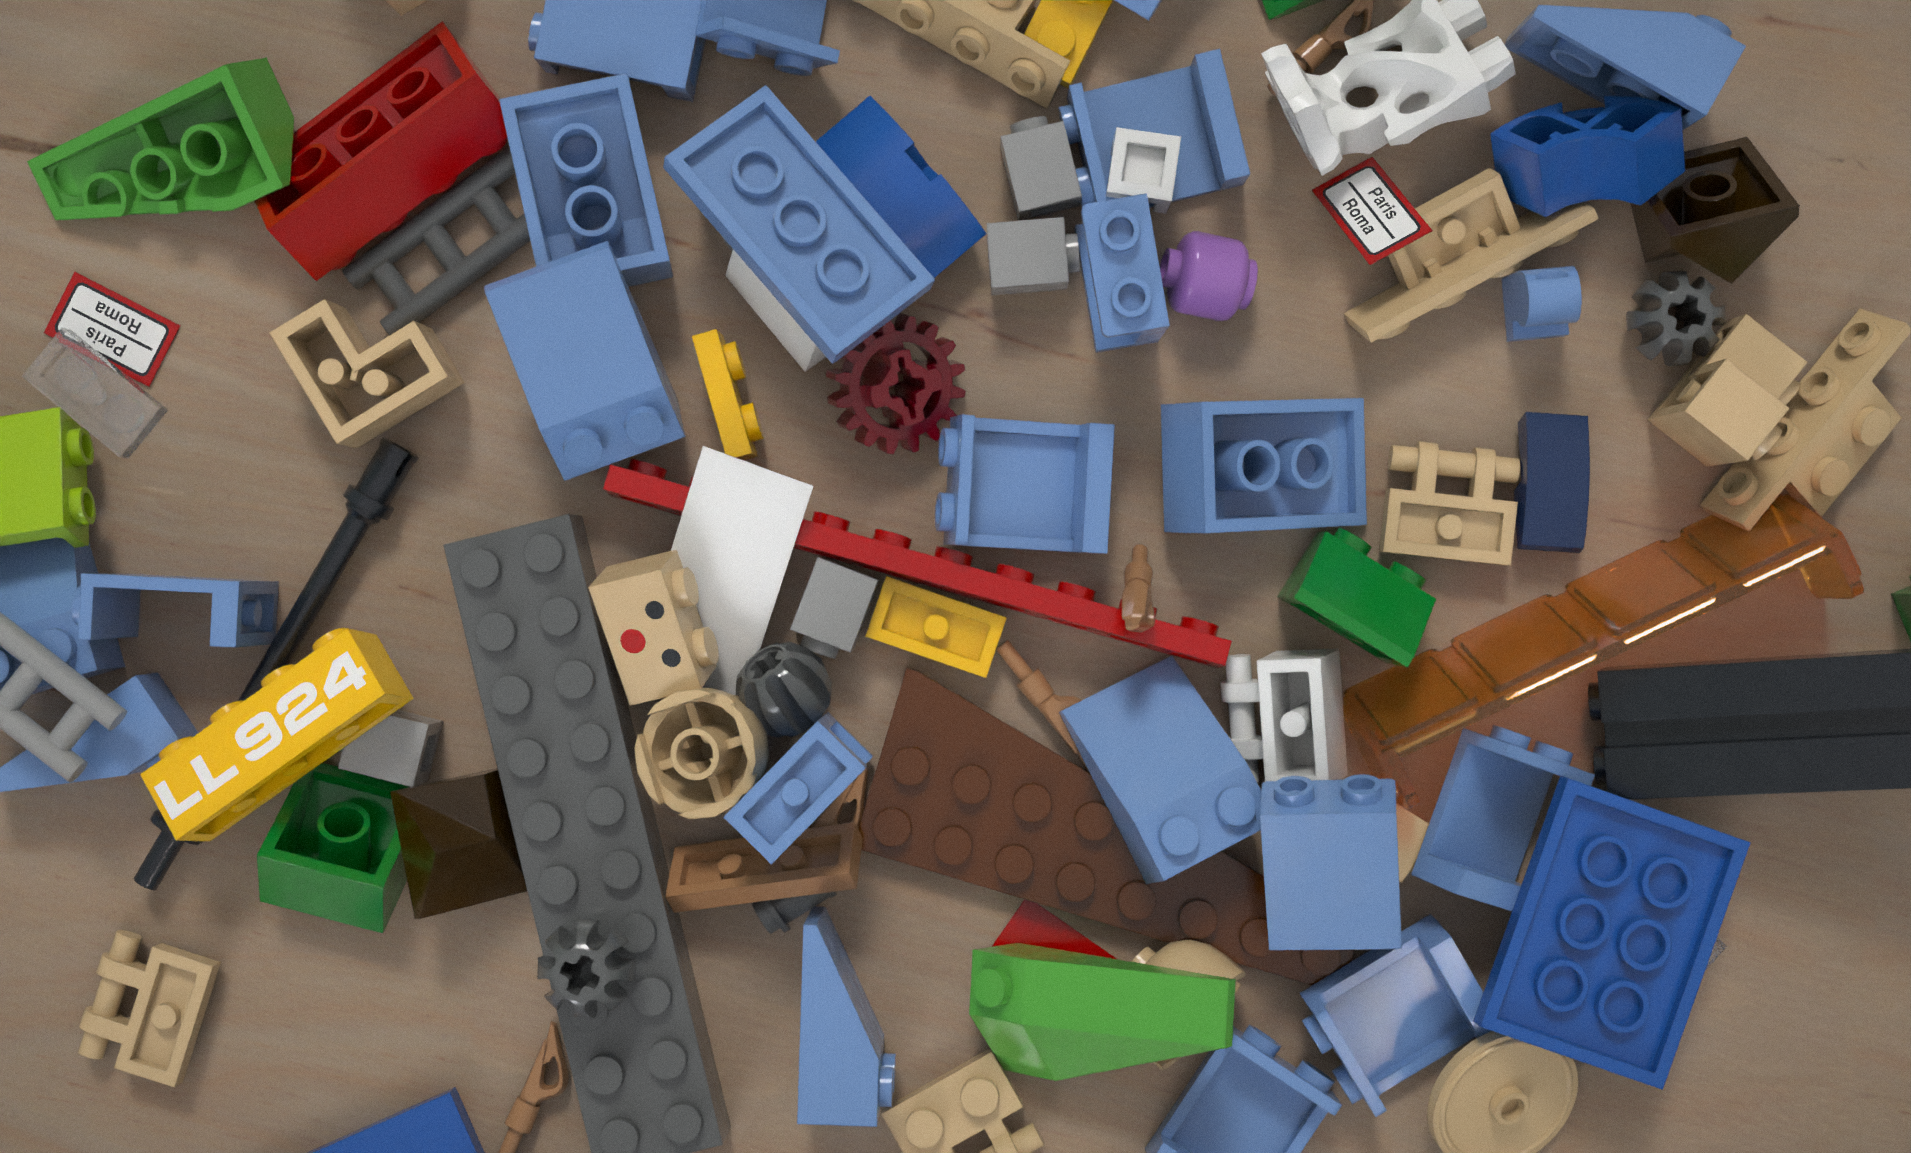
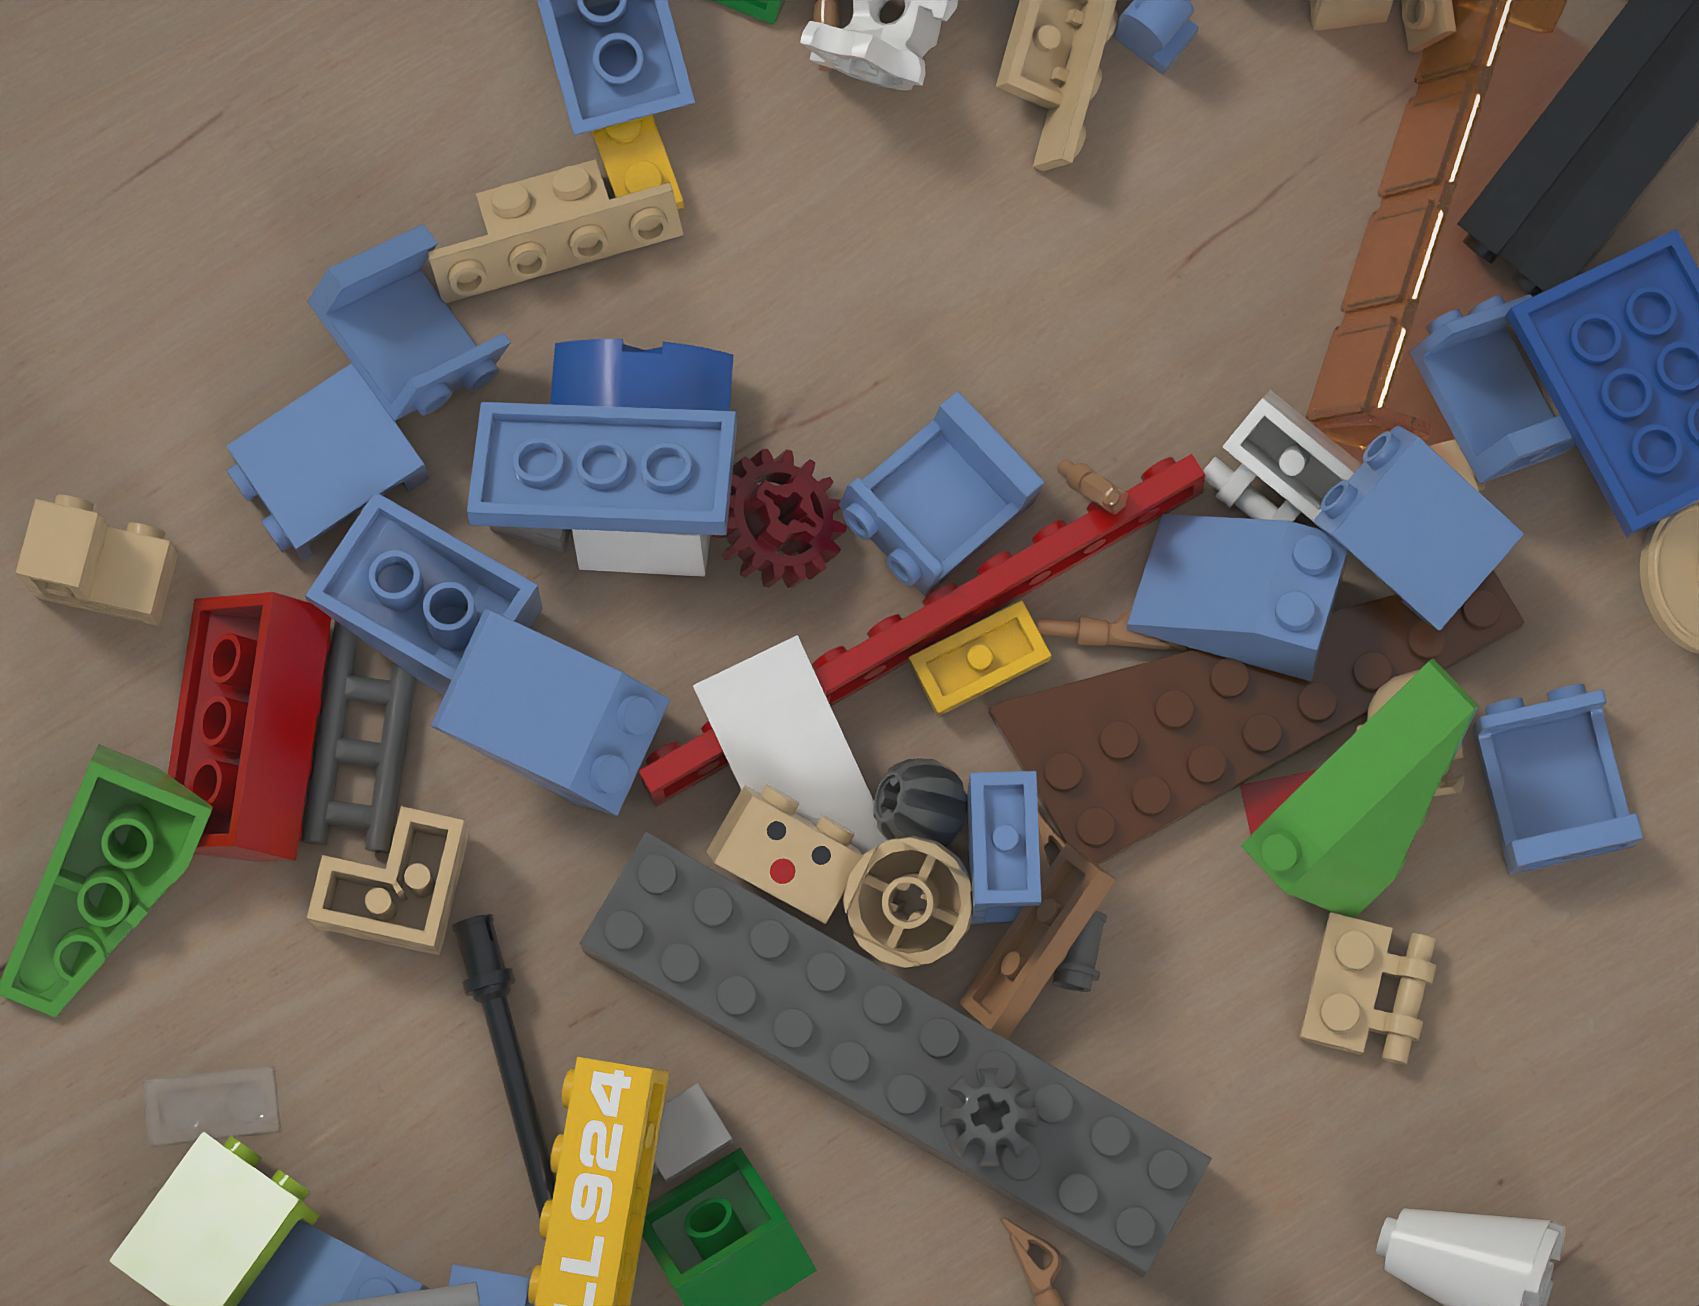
camera: 45 degrees left, 10 degrees down
(115, 327) = (174, 1048): sticker -> none
(240, 609) = (463, 1125): medium blue panel -> none
(457, 843) = (805, 1144): dark brown slope -> none
(721, 368) = (645, 635): yellow plate -> none
(834, 608) = (895, 715): light grey brick -> none
(841, 1041) = (1213, 1001): medium blue slope -> none
(1031, 256) = (778, 341): light grey brick -> none
(1040, 168) = (723, 276): light grey brick -> none
(1121, 273) = (857, 285): medium blue panel -> none
(1142, 165) = (796, 200): white panel -> none
(1179, 102) = (781, 177): medium blue panel -> none
(1208, 276) = (915, 232): medium lavender head -> none
(1263, 465) = (1085, 320): medium blue slope -> none
(1359, 597) = (1246, 341): green slope -> none
(1371, 210) = (978, 78): sticker -> none
(1394, 1011) = (1572, 592): medium blue panel -> none
(1445, 524) = (1255, 232): tan plate -> none
(1553, 483) = (1295, 132): dark blue slope -> none

